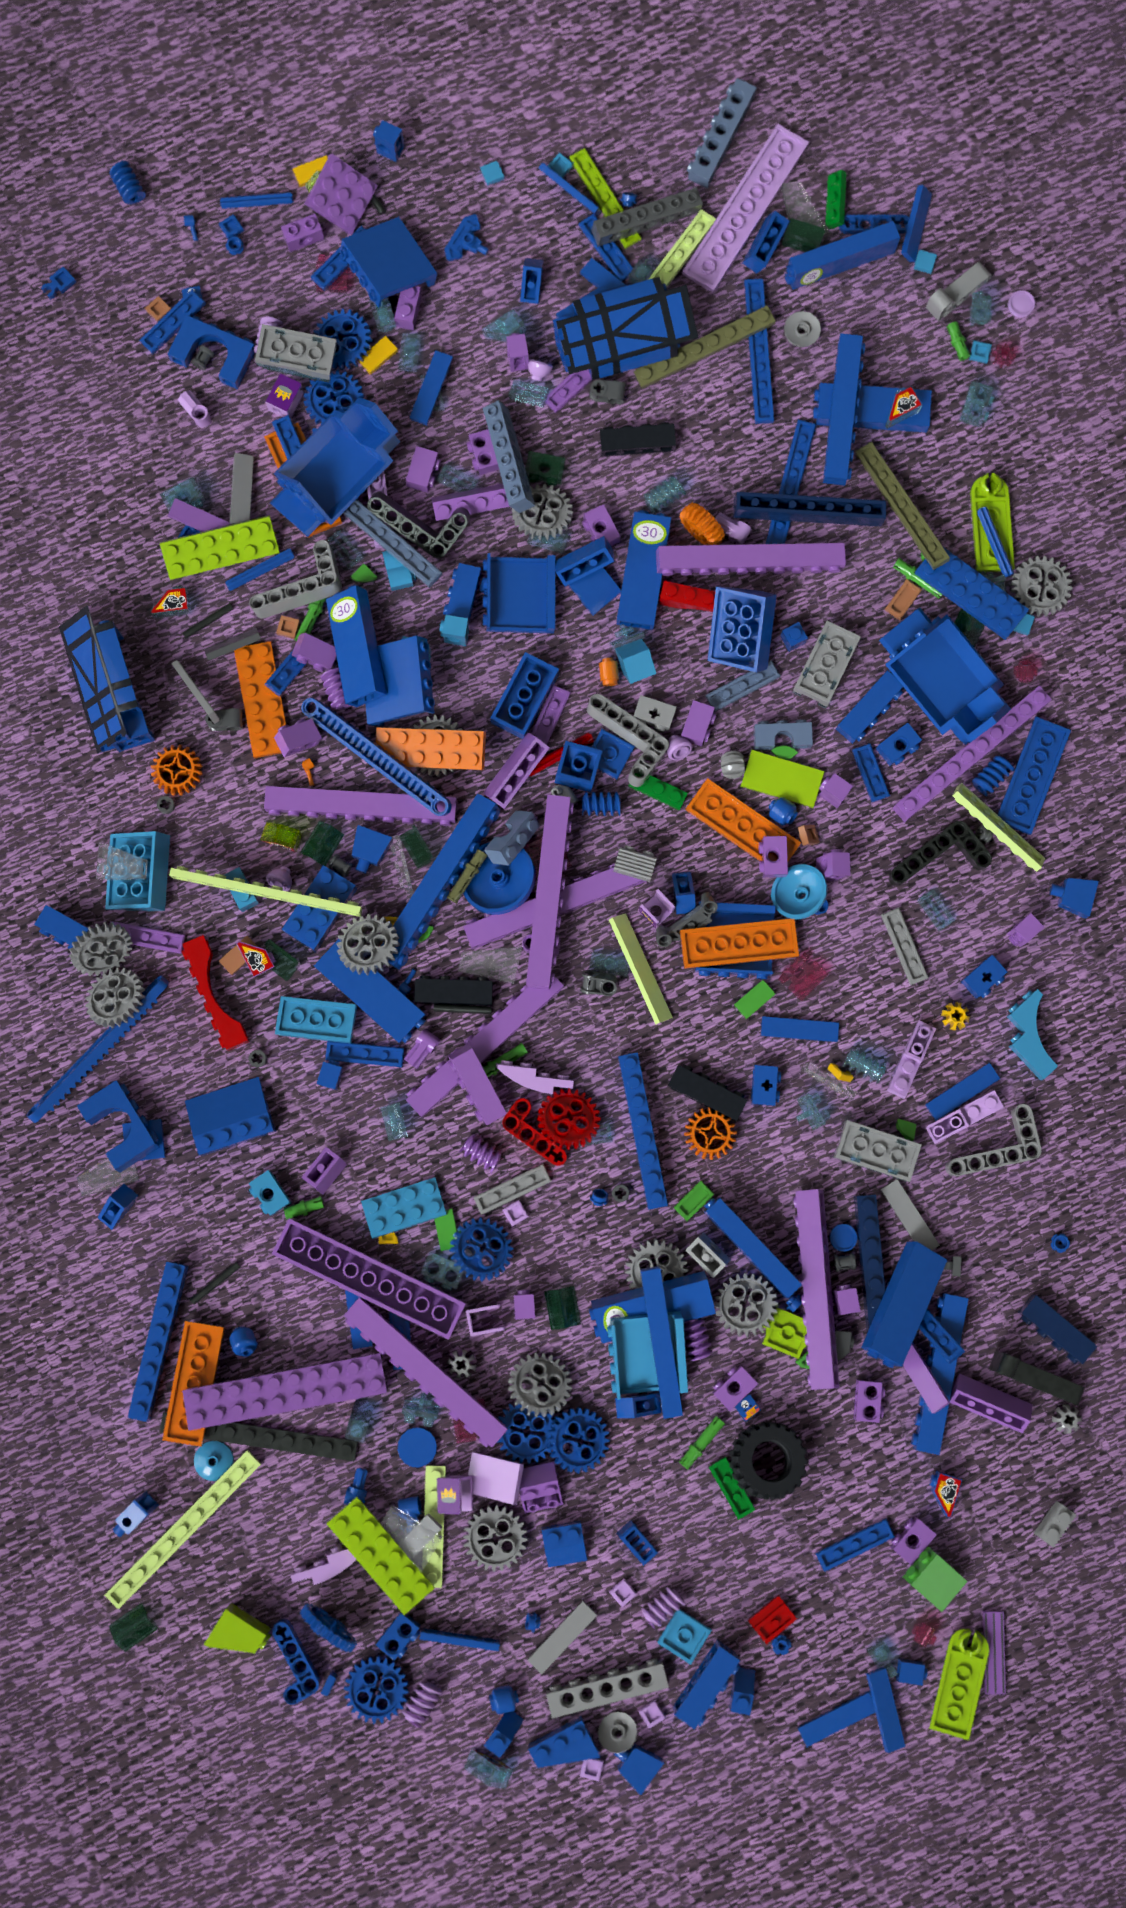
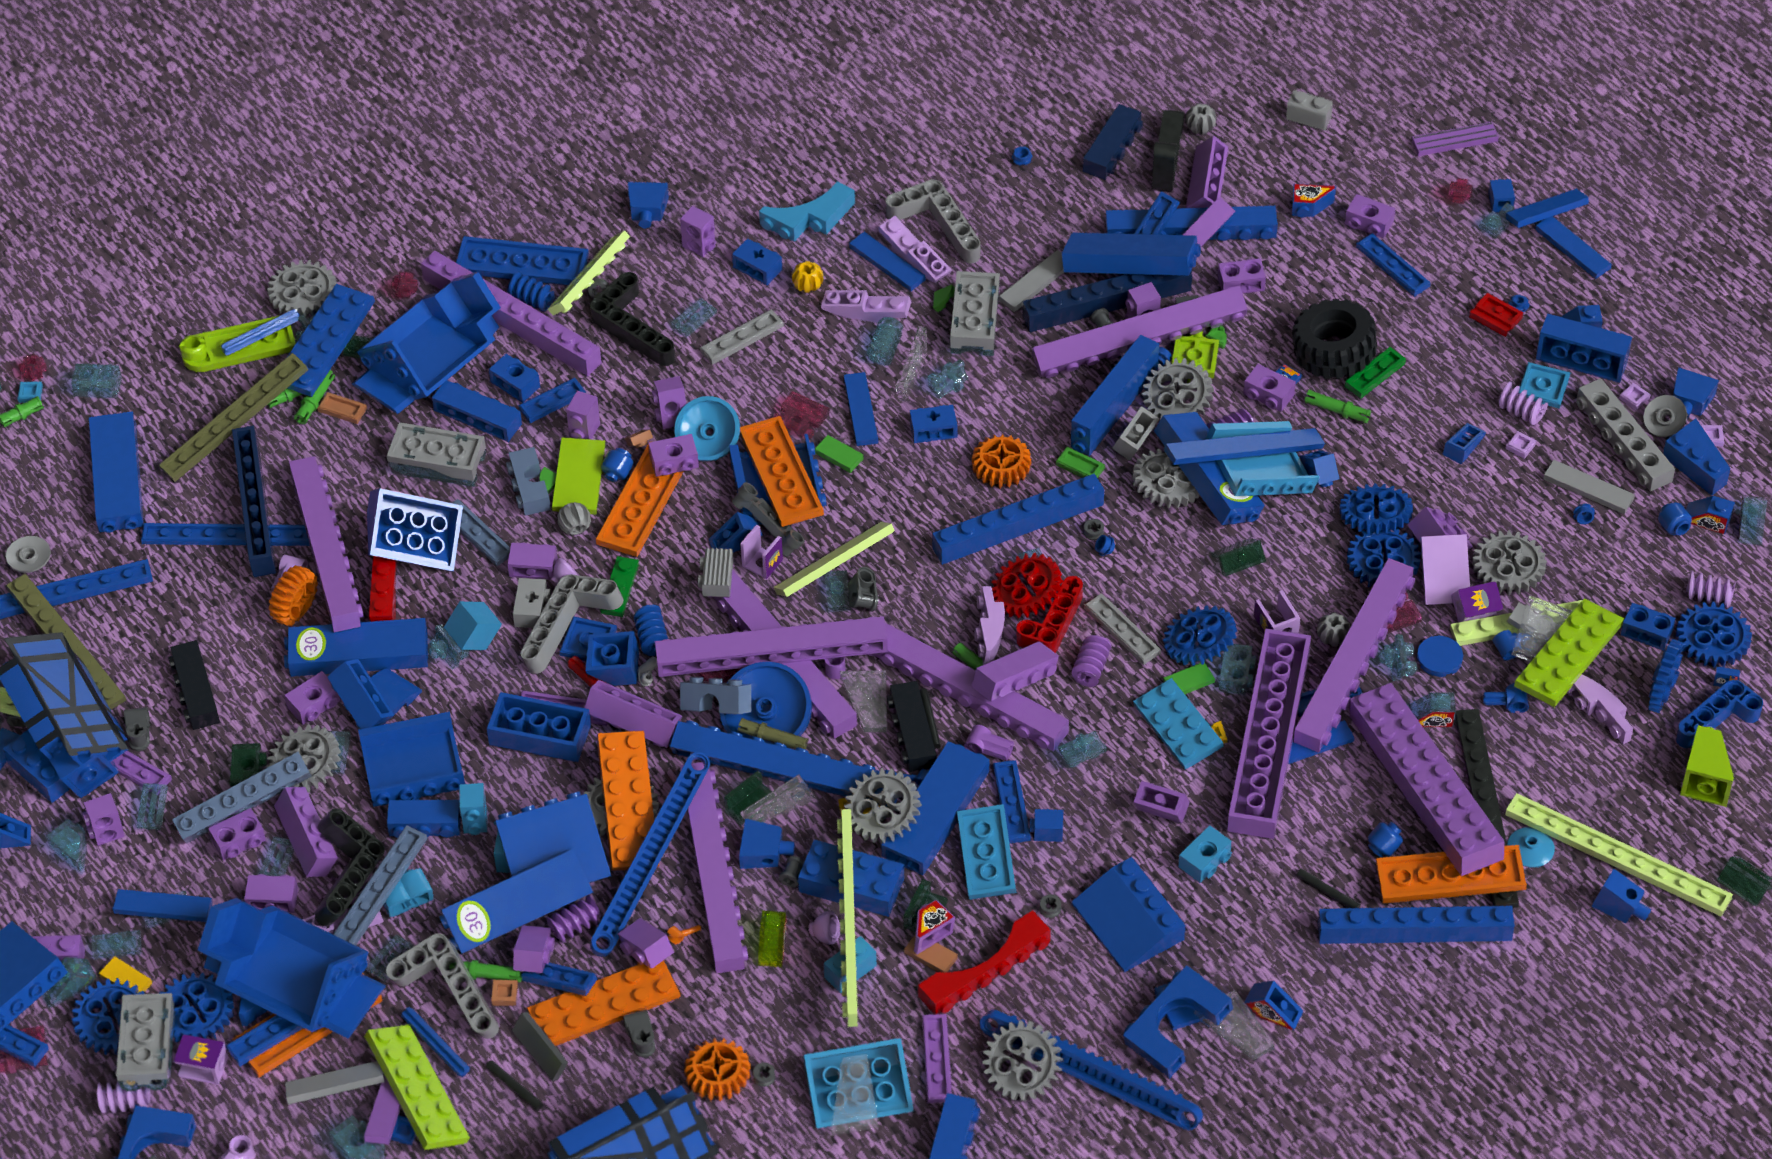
camera: 100 degrees left, 30 degrees down
(100, 948) = (967, 1081): light grey gear -> none
(172, 603) = (499, 1123): slope -> none
(195, 691) = (613, 1061): light grey tile -> none
(303, 1207) = (1209, 817): bright green pin -> none
(322, 843) = (767, 897): clear green panel -> none
(363, 574) = (418, 929): bright green tile -> none
(459, 1639) = (1628, 567): blue tile -> none
(515, 1213) = (1148, 620): lavender tile -> none
(524, 1305) = (1248, 580): medium lavender brick -> none
(539, 369) = (122, 798): lavender brick -> none
(550, 1371) = (1329, 552): light grey gear -> none
(564, 1543) = (1488, 501): blue slope -> none
(609, 672) = (489, 656): orange brick -> none
(663, 494) = (260, 645): clear light blue piece -> none
(706, 1092) = (956, 473): black brick -> none
(793, 637) = (410, 485): blue brick -> none
(843, 409) = (128, 485): blue brick -> none
(843, 1237) = (1075, 326): blue piece -> none
(844, 1076) = (899, 362): yellow tile -> none
(903, 406) = (115, 433): slope -> none
(934, 1579) = (1401, 188): bright green brick -> none
(954, 1266) = (1074, 227): dark grey tile -> none
(960, 1684) = (1496, 155): lime plate -> none

